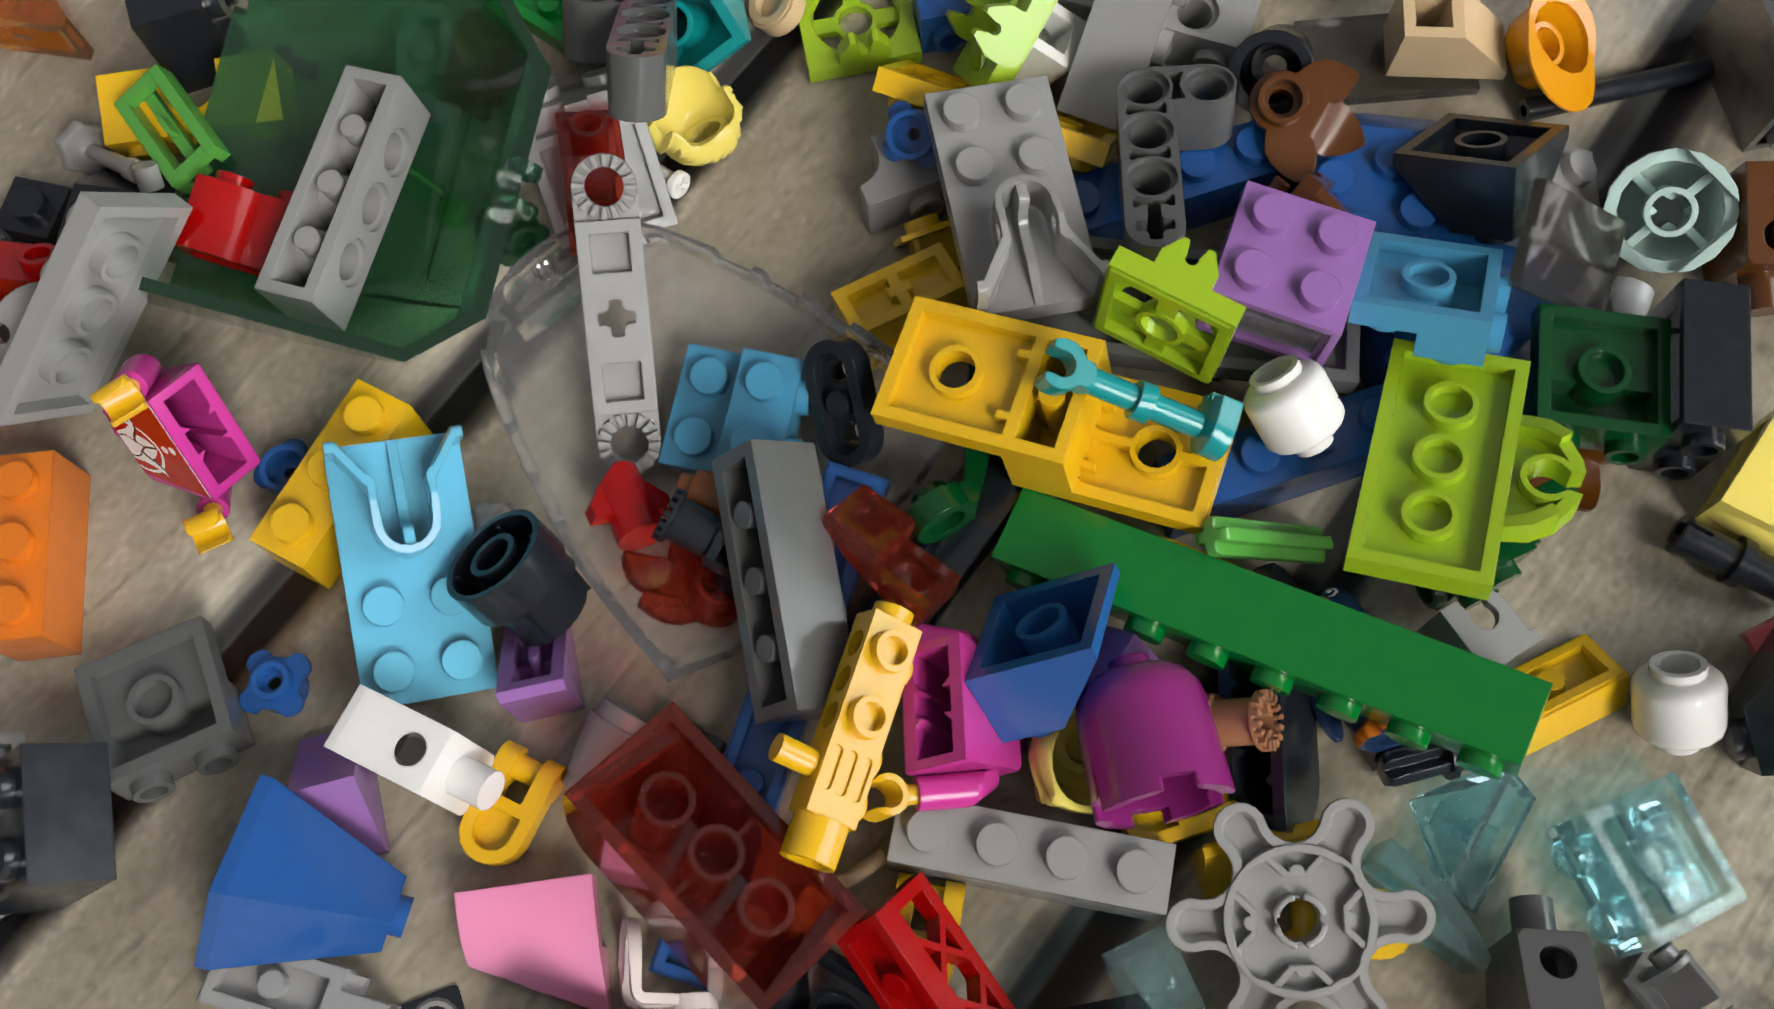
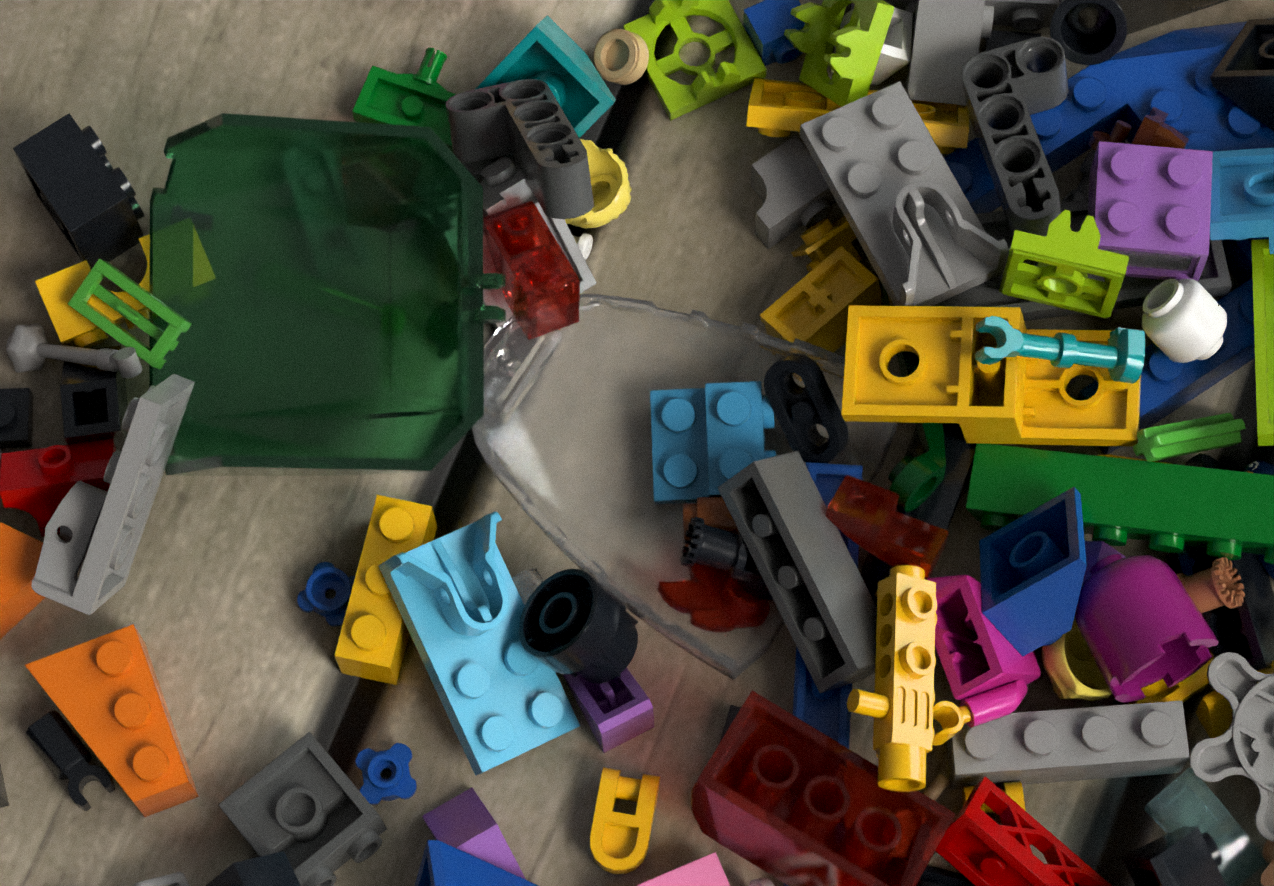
camera: 15 degrees left, 0 degrees up
(180, 438) = (238, 583): torso -> none
(231, 222) = (236, 388): red brick -> none
(344, 198) = (316, 339): light grey brick -> none
(432, 761) = (545, 793): white torso -> none
(601, 735) = (687, 749): light grey cone -> none
(612, 269) = (581, 345): light grey piece -> none
(628, 506) = (643, 545): red piece -> none
(898, 141) = (784, 169): blue plate -> none
(1316, 119) = (1136, 61): reddish brown plate -> none

